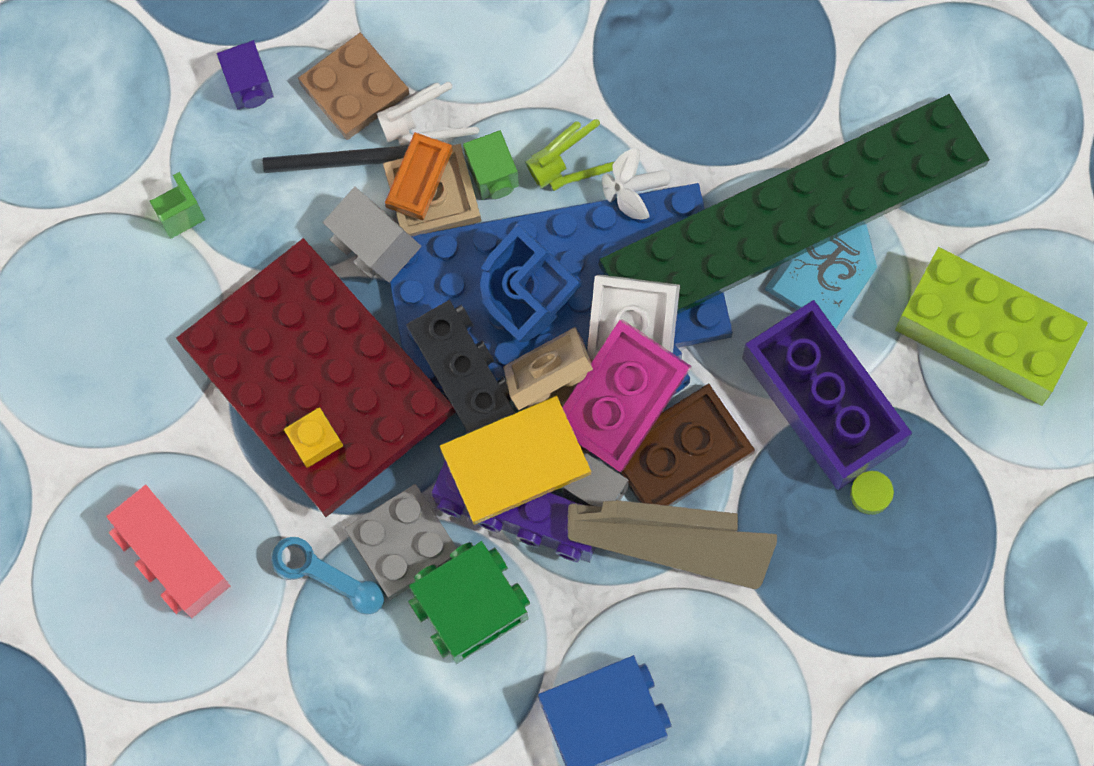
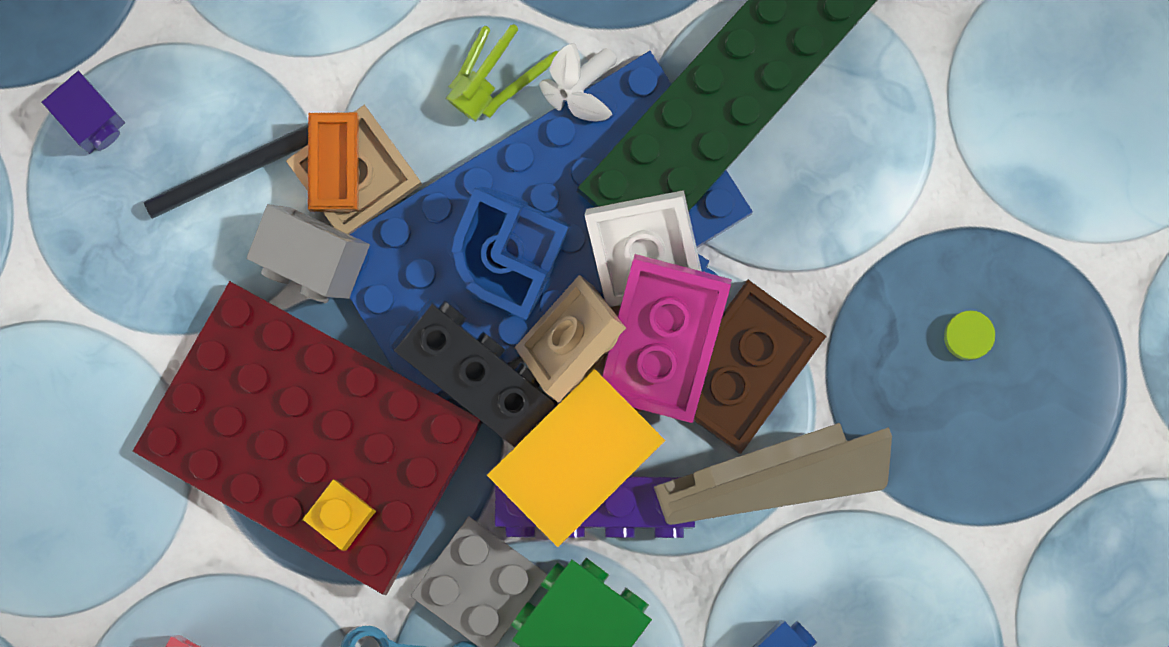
camera: 25 degrees left, 10 degrees up
(177, 208) = (70, 299): bright green panel -> none
(353, 86) = (213, 77): medium nougat plate -> none
(398, 120) = (280, 100): white plant -> none
(491, 166) = (410, 117): bright green brick -> none
(600, 486) = (679, 451): light grey brick -> none
(826, 394) = (884, 248): dark purple brick -> none
(828, 274) = (833, 108): medium azure tile -> none
(991, 326) = (1034, 99): lime brick -> none

